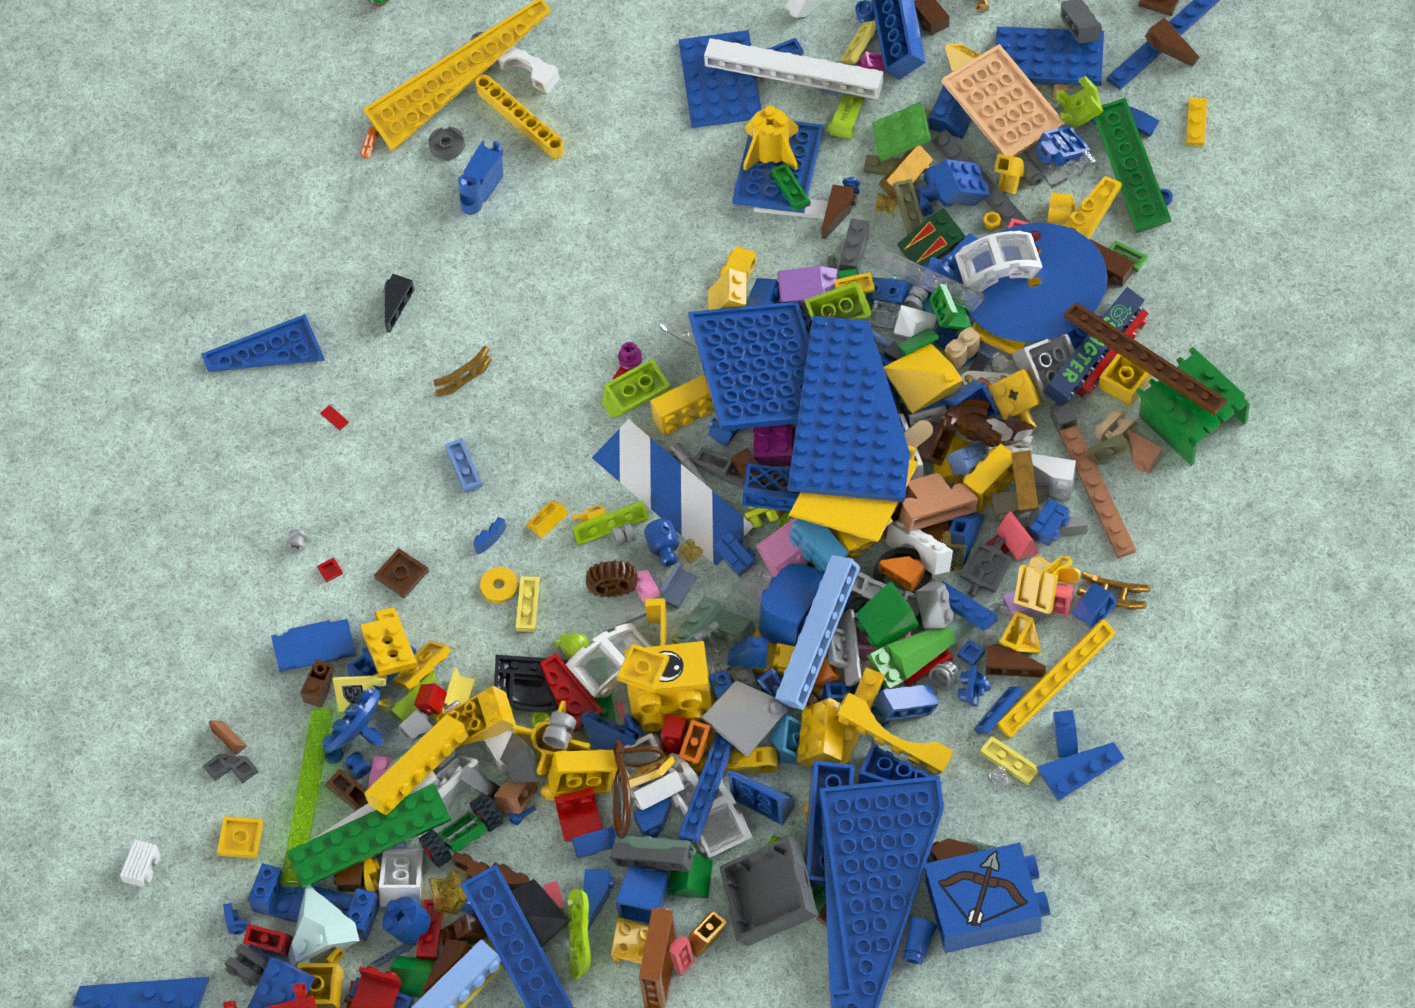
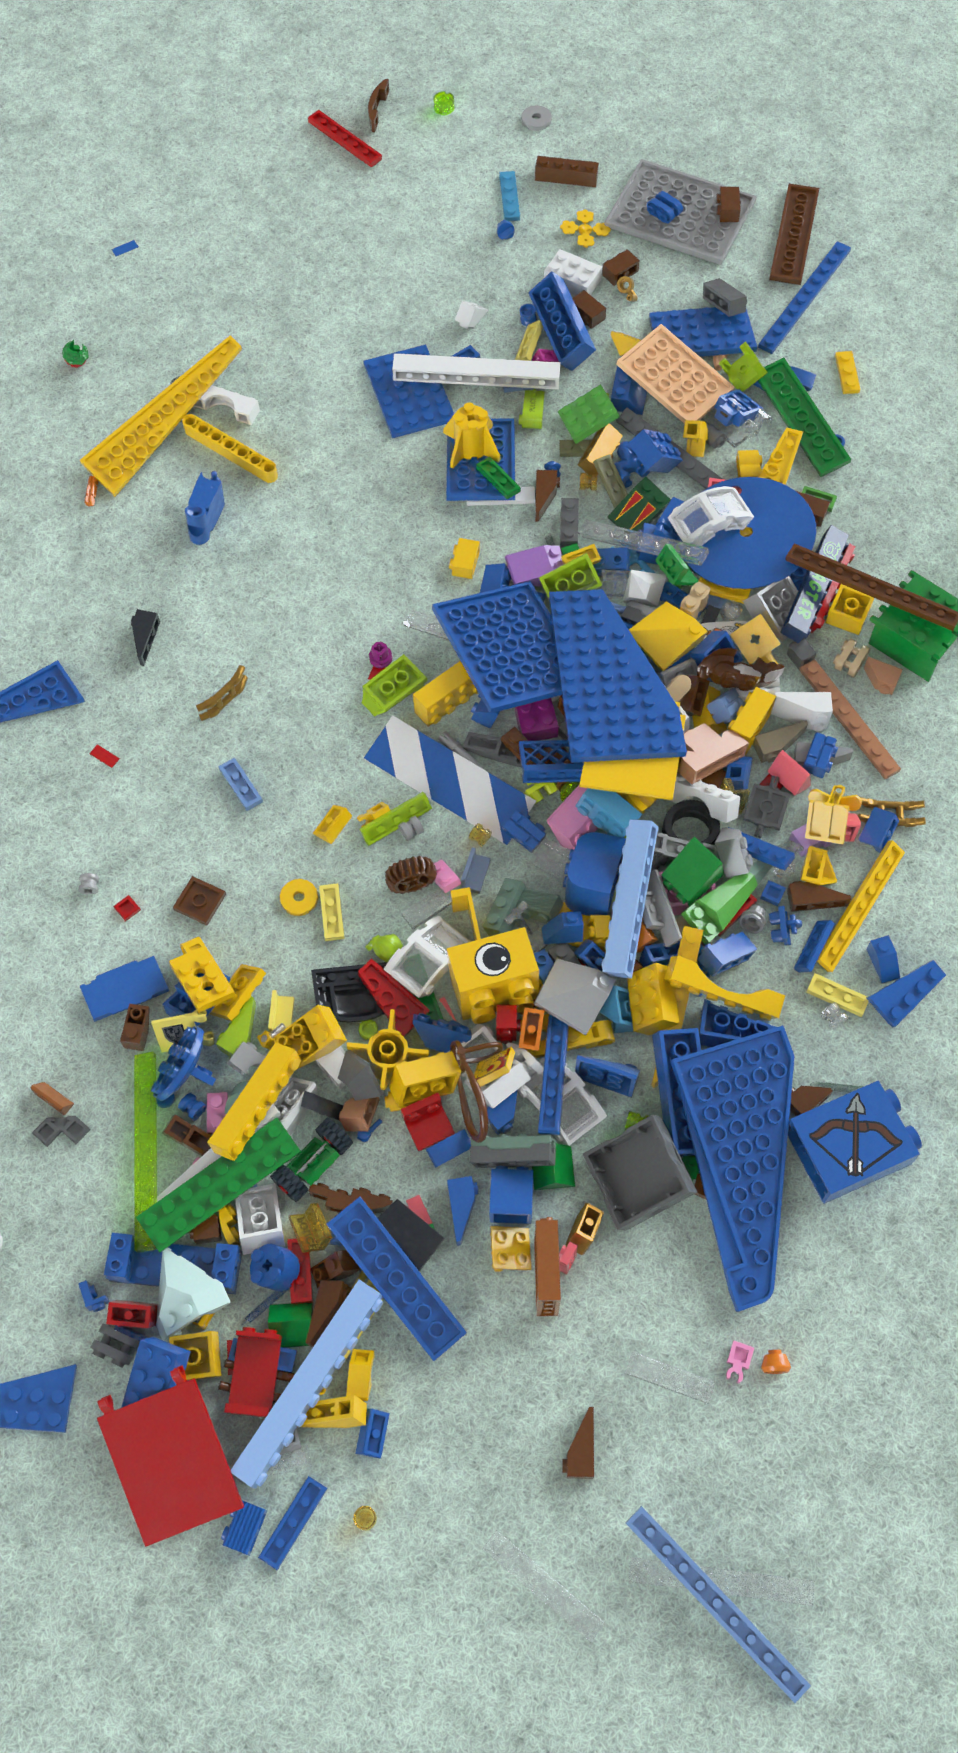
camera: 15 degrees left, 5 degrees up
(240, 837) = (84, 1204): yellow plate -> none
(430, 699) = (254, 1027): red brick -> none
(449, 151) = (168, 489): dark grey plate -> none
(488, 538) = (279, 852): blue slope -> none
(559, 731) = (396, 1044): light grey wheel -> none
(579, 949) = (459, 1268): lime plate -> none
(633, 725) = (463, 1020): blue slope -> none
(643, 668) = (470, 965): yellow tile -> none
(662, 541) = (451, 829): blue piece -> none
(728, 291) = (463, 580): yellow brick -> none
(903, 571) = (694, 824): orange slope -> none
(916, 297) = (638, 561): light grey wheel -> none
(917, 342) = (652, 602): green slope -> none
(918, 939) = (797, 1196): blue plant -> none
(991, 221) = (688, 484): yellow tile -> none
(1024, 481) = (789, 719): pearl gold brick -> none
(1109, 449) = (853, 677): olive plate -> none
(1170, 42) = (807, 304): reddish brown slope -> none

